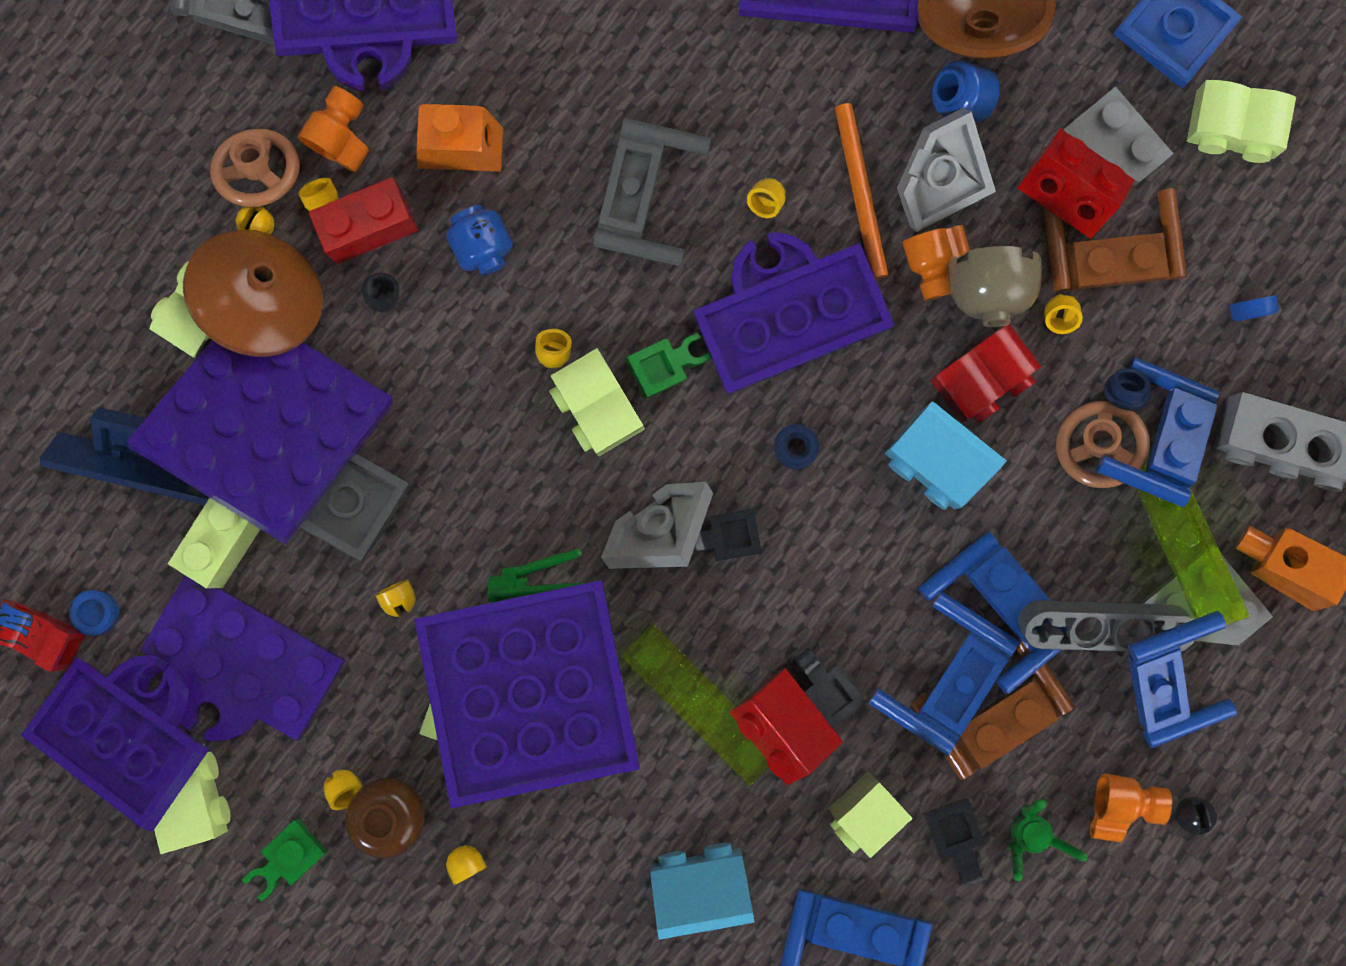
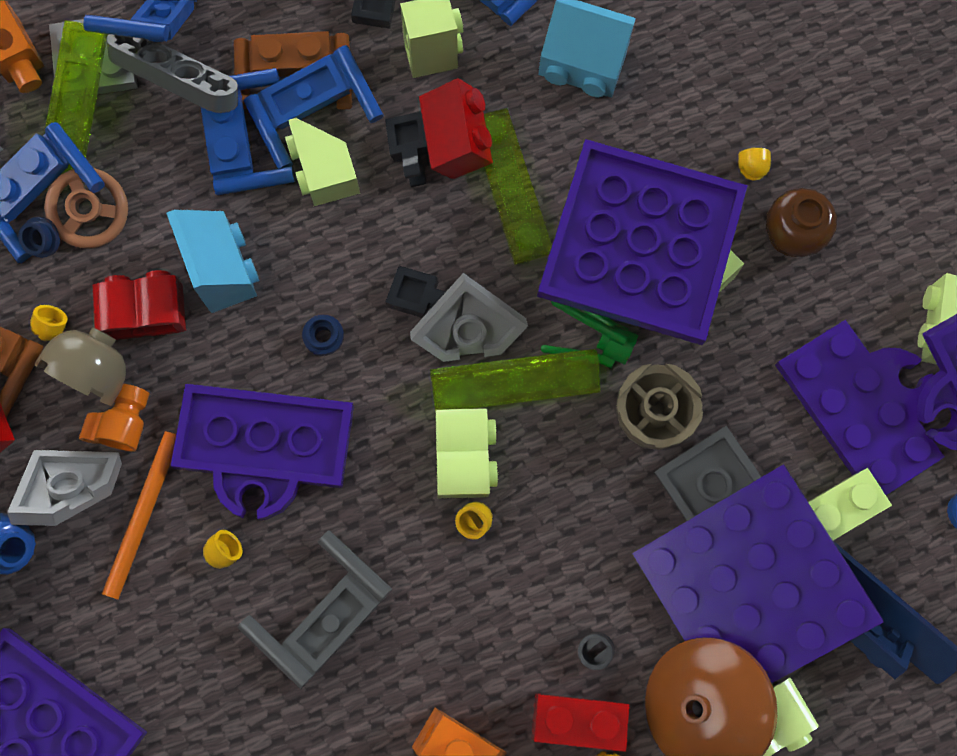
camera: 160 degrees left, 10 degrees down
(288, 856) = (890, 242): green plate -> none
(341, 788) = (824, 266): yellow hinge -> none
(395, 595) = (714, 385): yellow hinge -> none
(431, 541) = (659, 406): none -> dark tan cylinder
(479, 239) = (487, 647): blue head -> none
(585, 501) = (516, 380): none -> clear neon green plate
(661, 366) = (394, 456): green plate -> none
(898, 619) = (325, 163): none -> yellowish green slope

